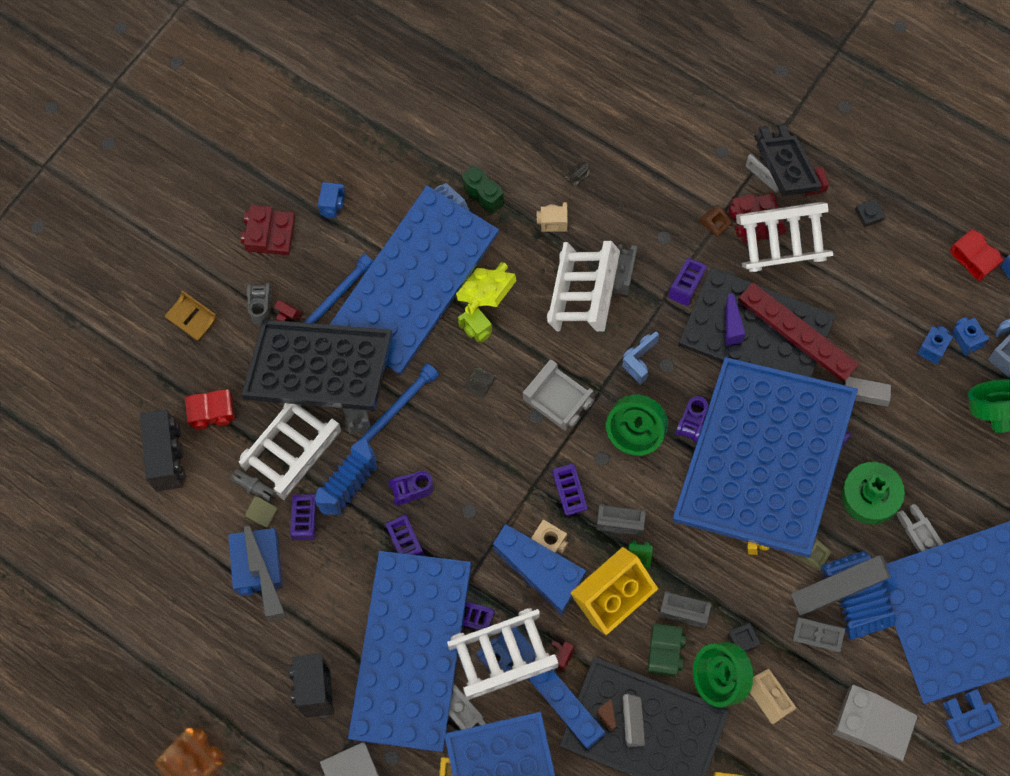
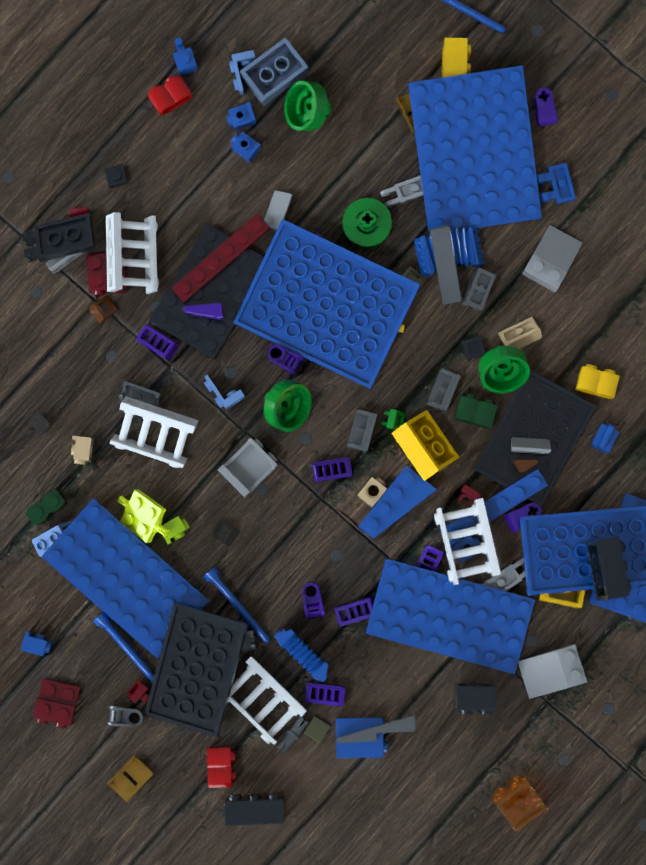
camera: 85 degrees left, 15 degrees up
(549, 722) = (513, 517): none -> dark purple piece

